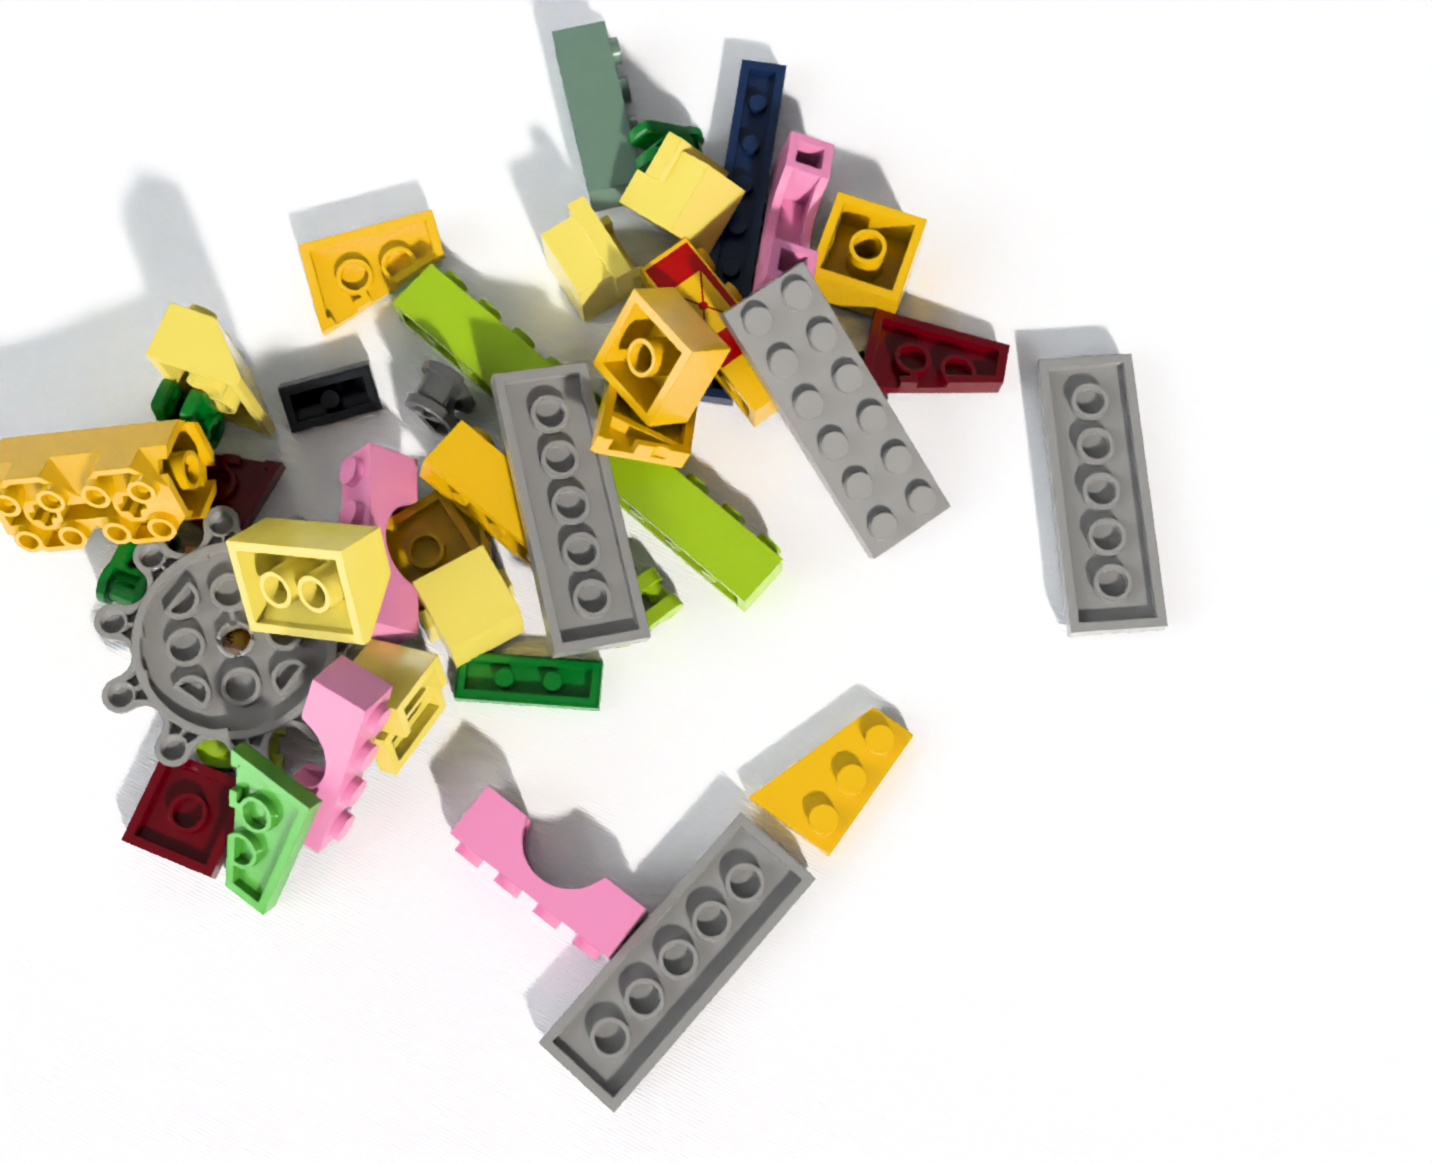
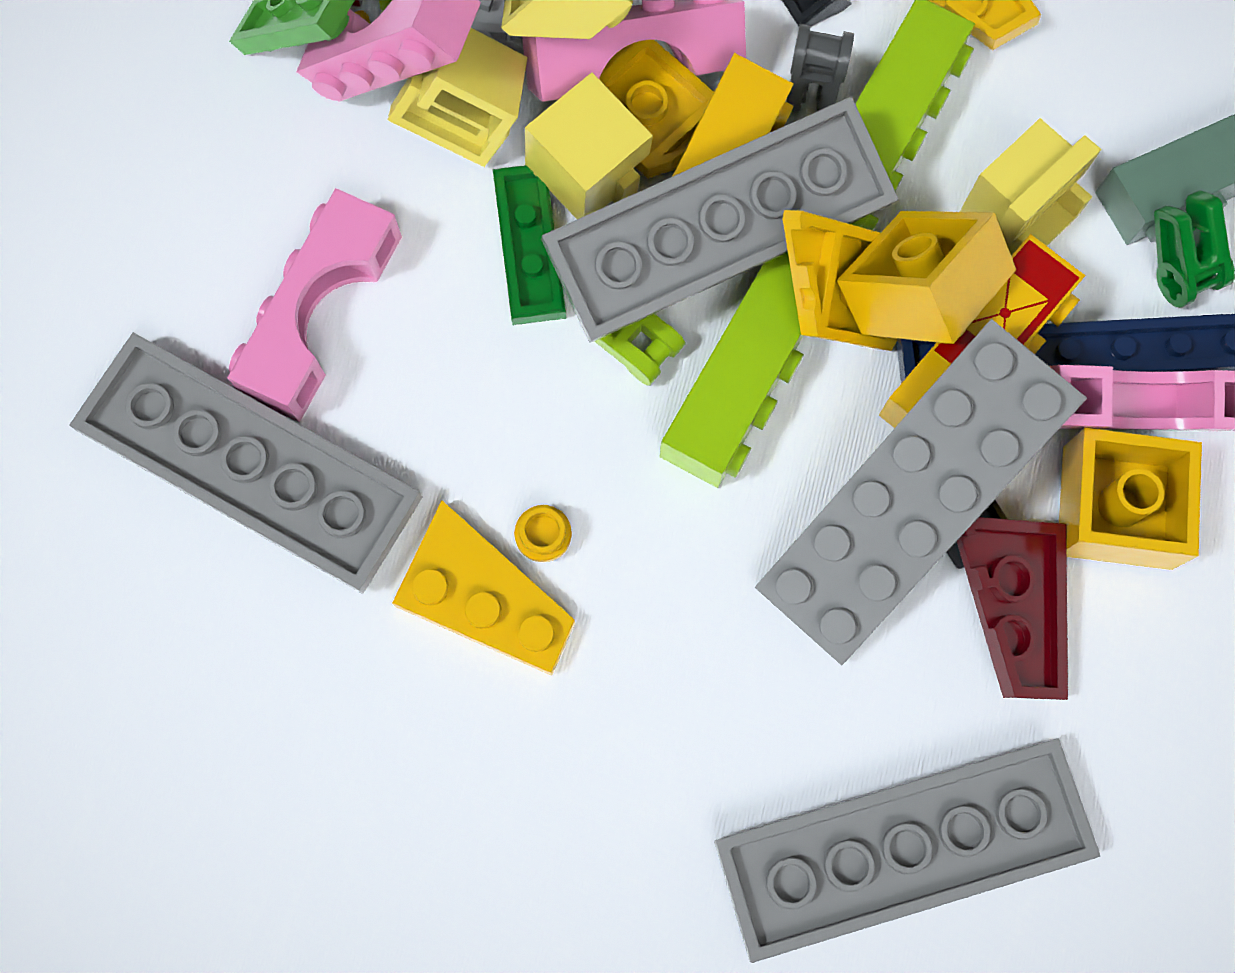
camera: 75 degrees right, 0 degrees up
(684, 193) = (1142, 267): light yellow plate -> none
(794, 719) = (543, 533): none -> yellow plate

